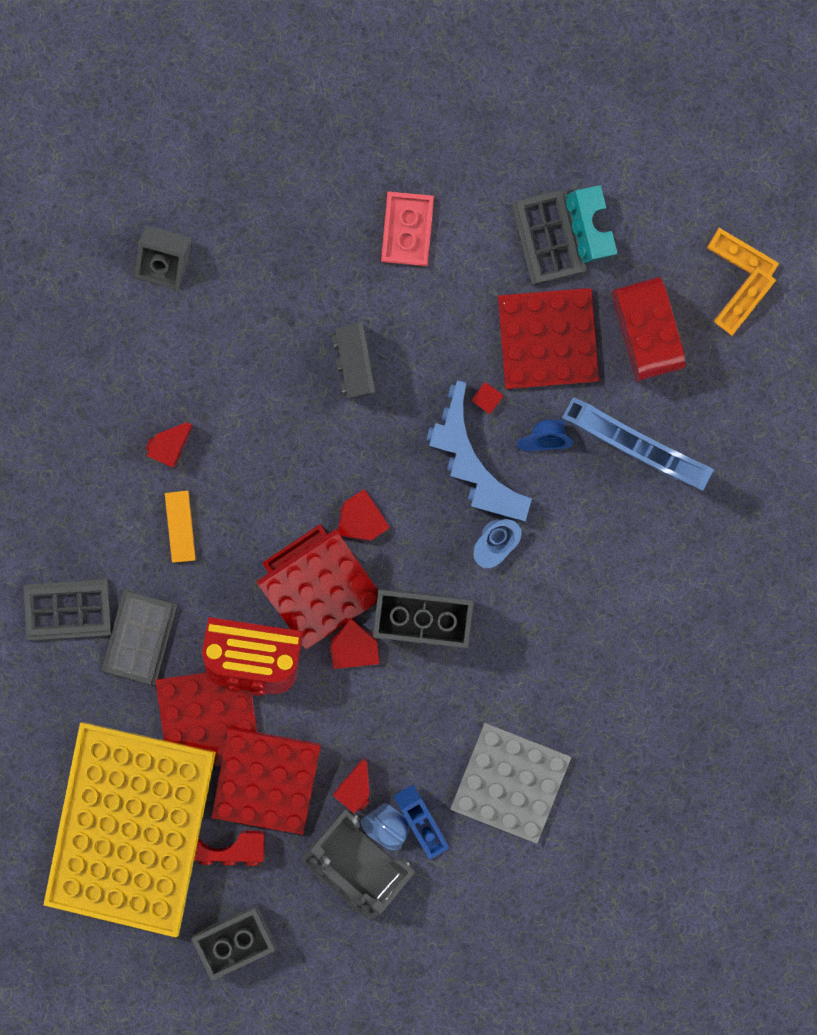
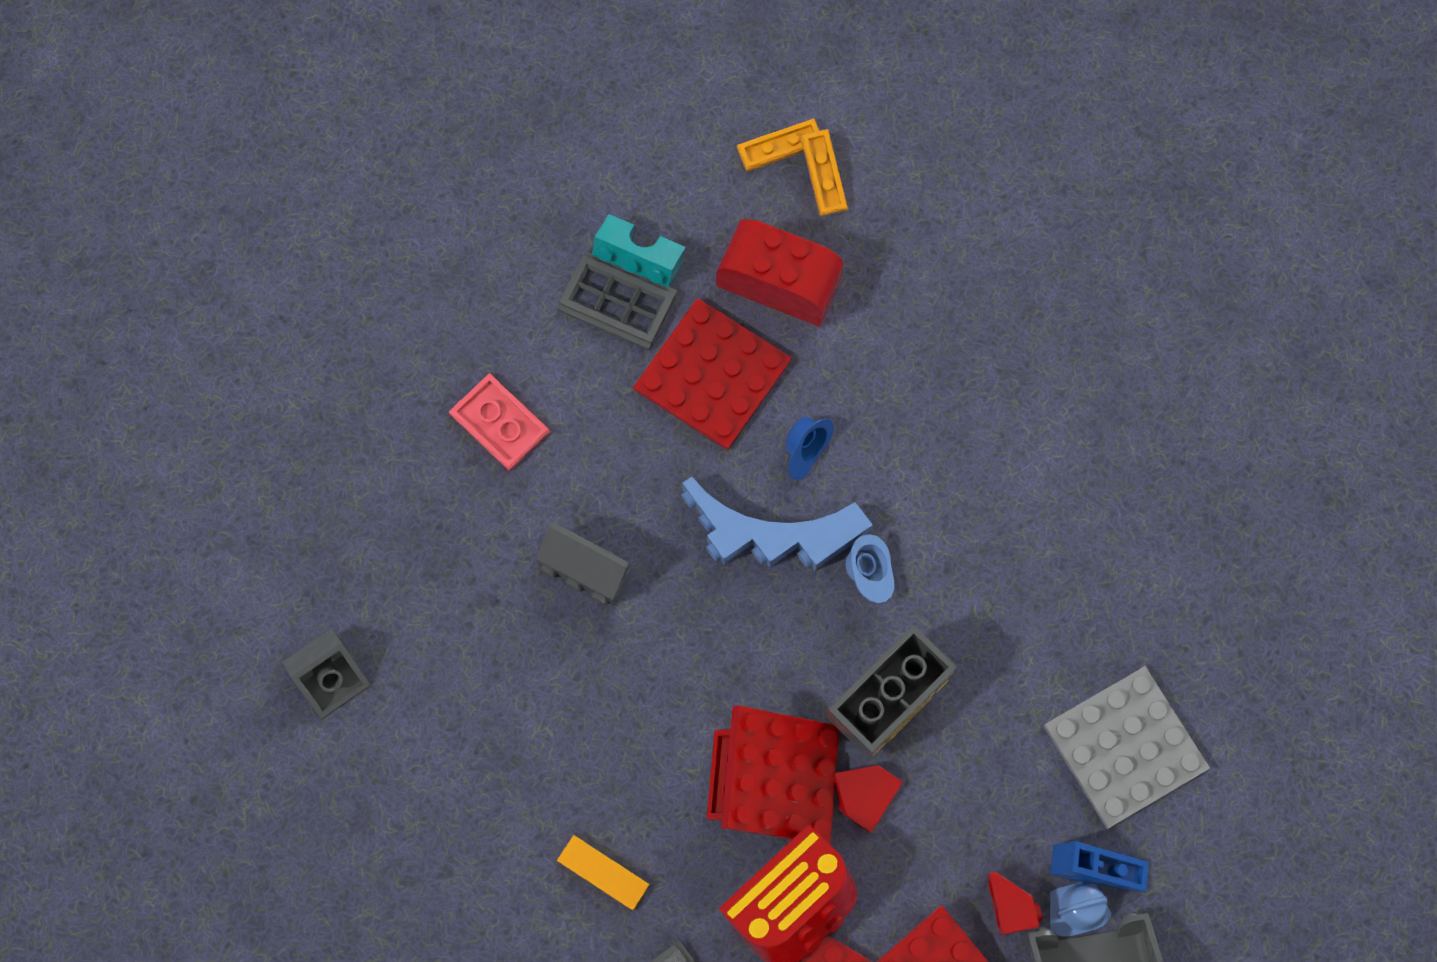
camera: 50 degrees left, 15 degrees down
(169, 444) = (511, 815): red slope -> none
(361, 519) = (742, 682): red slope -> none
(487, 398) = (722, 473): red tile -> none
(637, 445) = (885, 365): medium blue arch -> none

